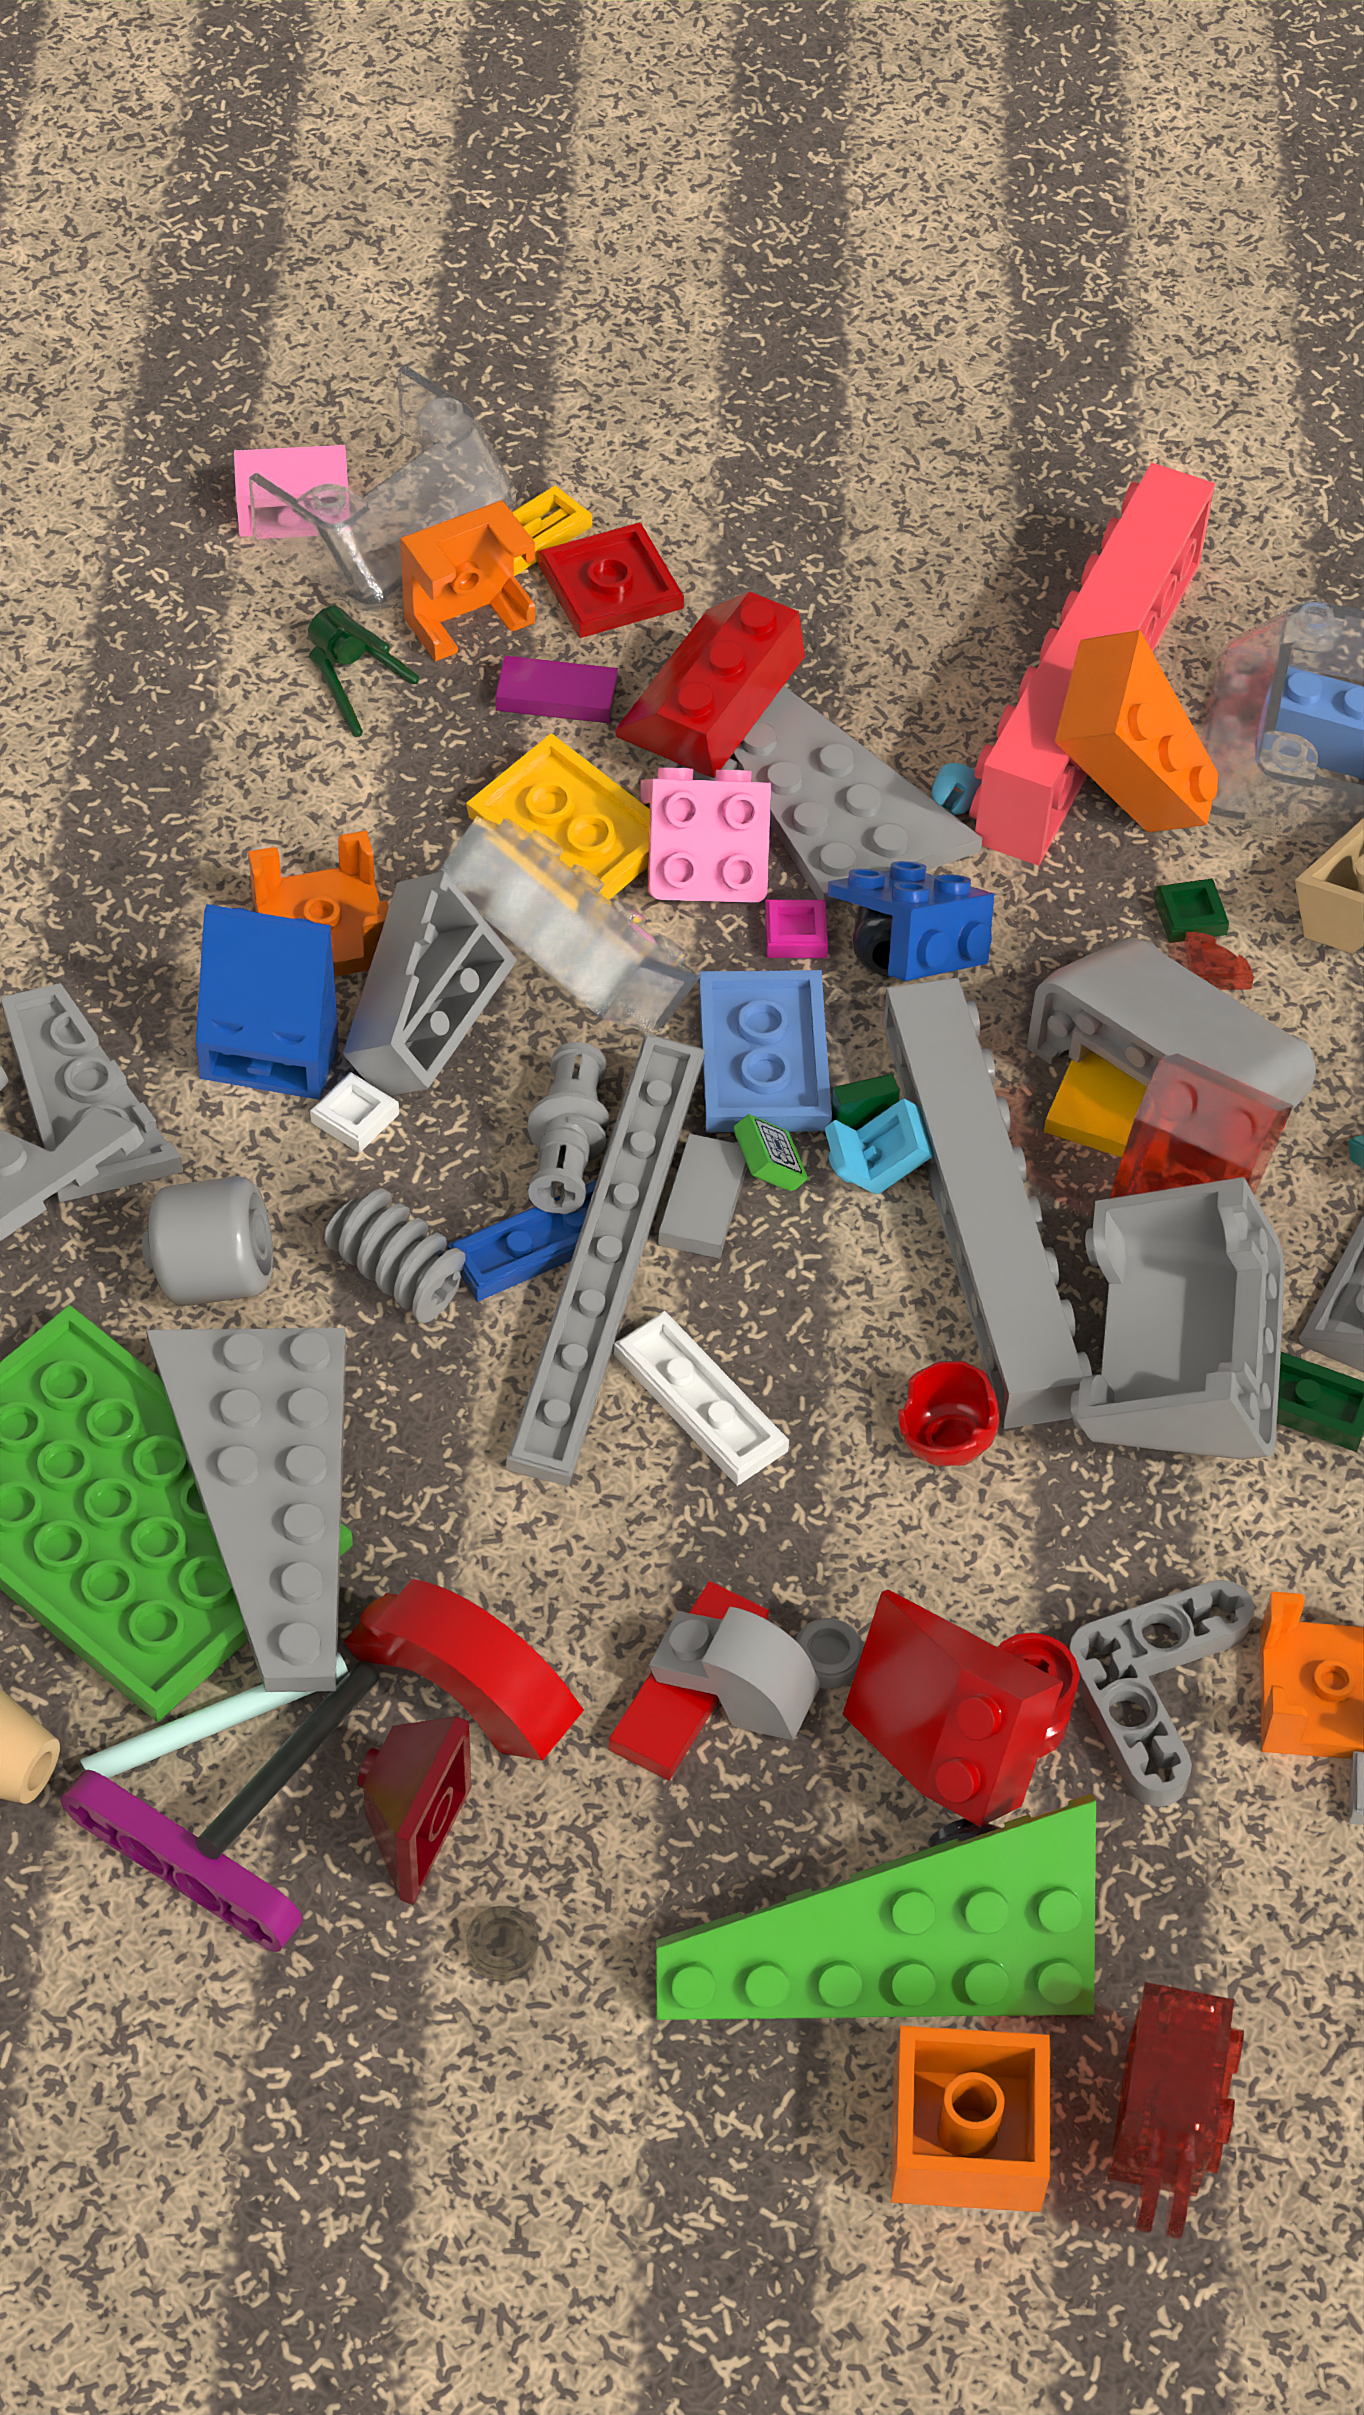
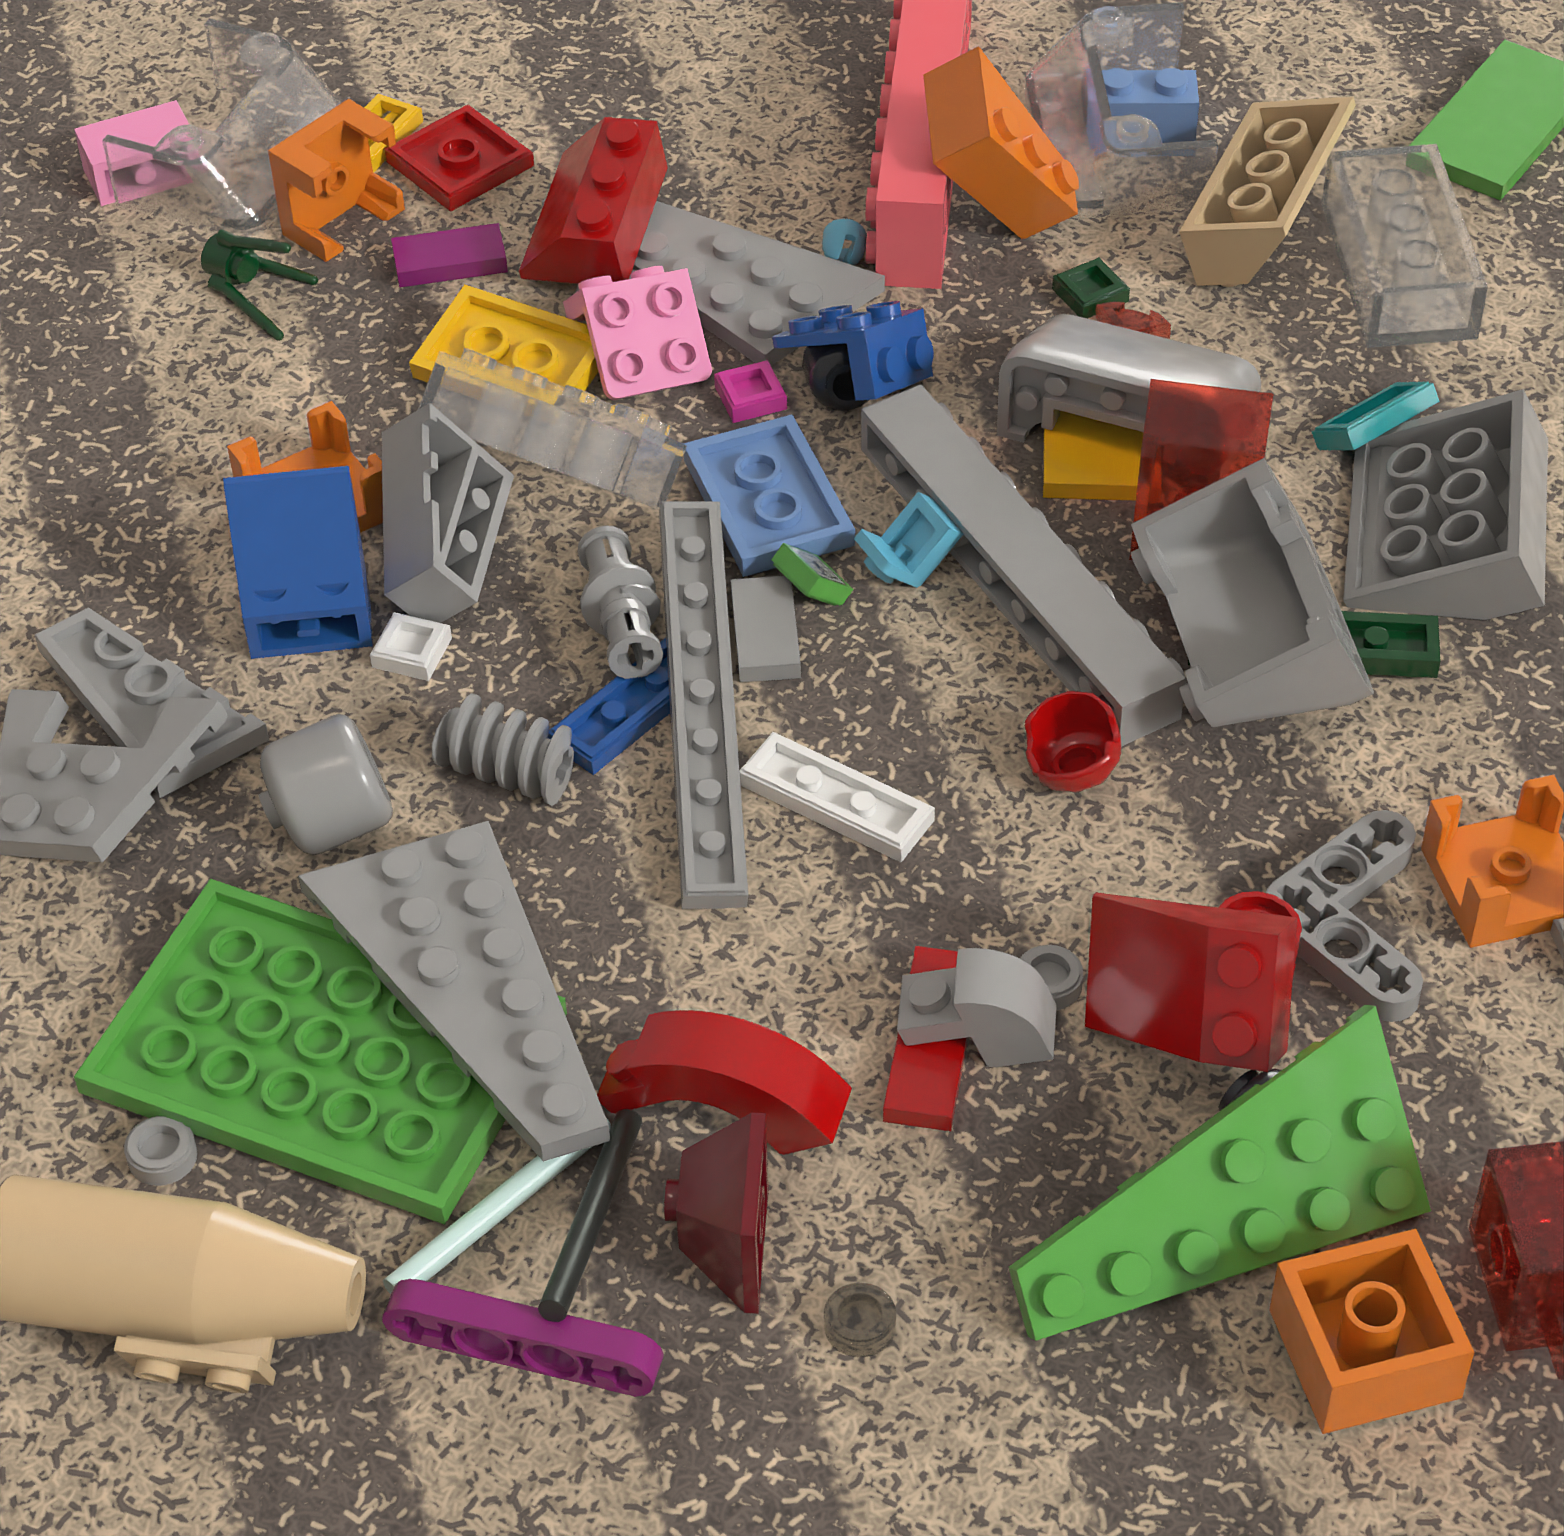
camera: 15 degrees left, 5 degrees down
(863, 1100) = (879, 507): dark green tile -> none

